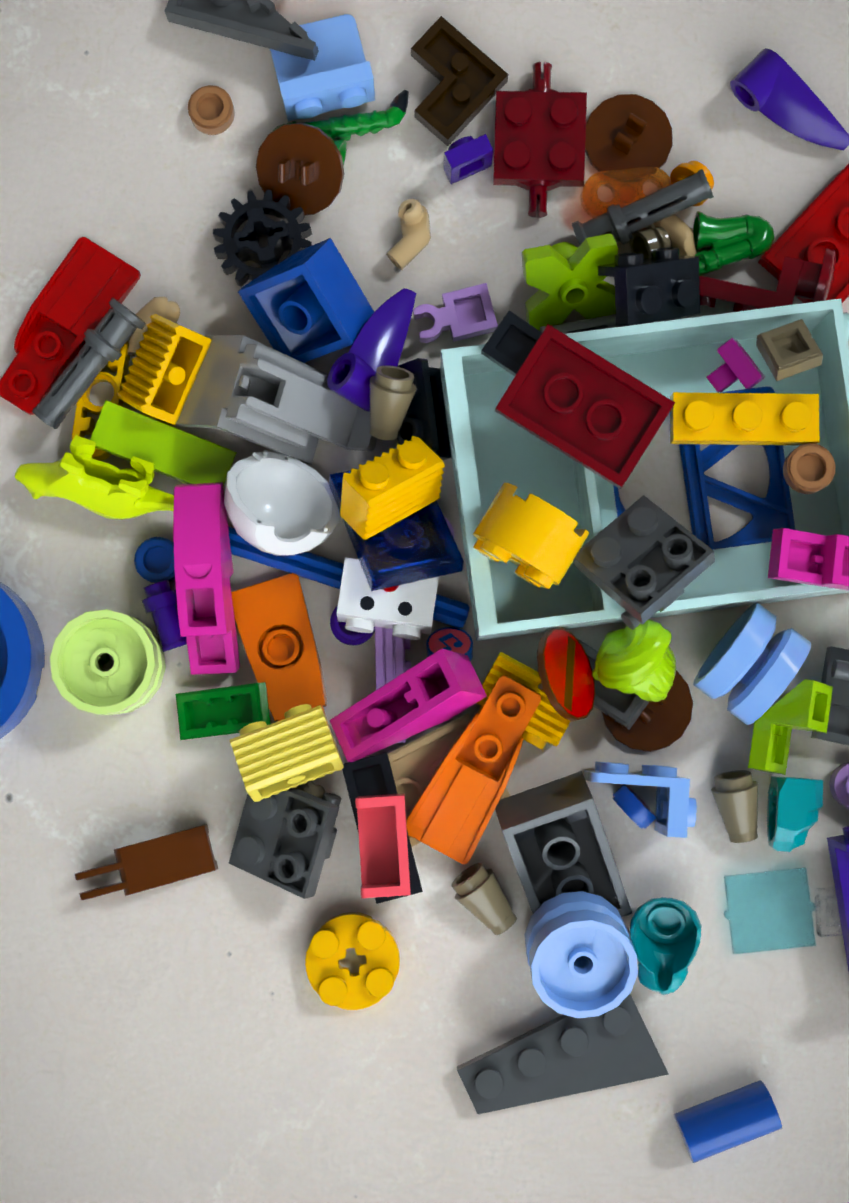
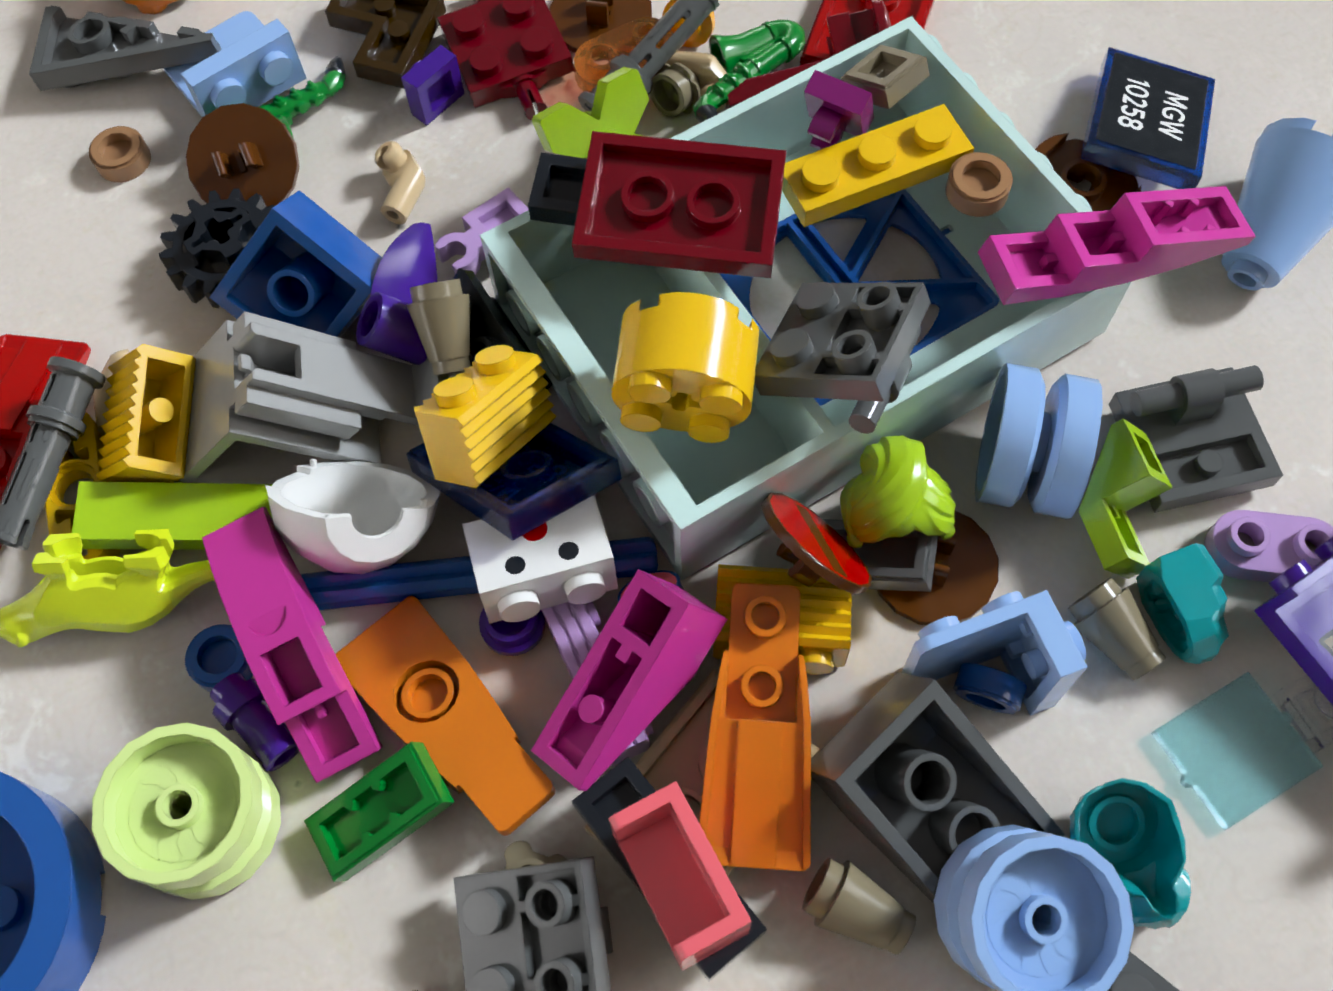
camera: 20 degrees left, 20 degrees down
(286, 752) = (486, 811): light yellow brick -> none
(654, 286) = (692, 88): black bracket -> none

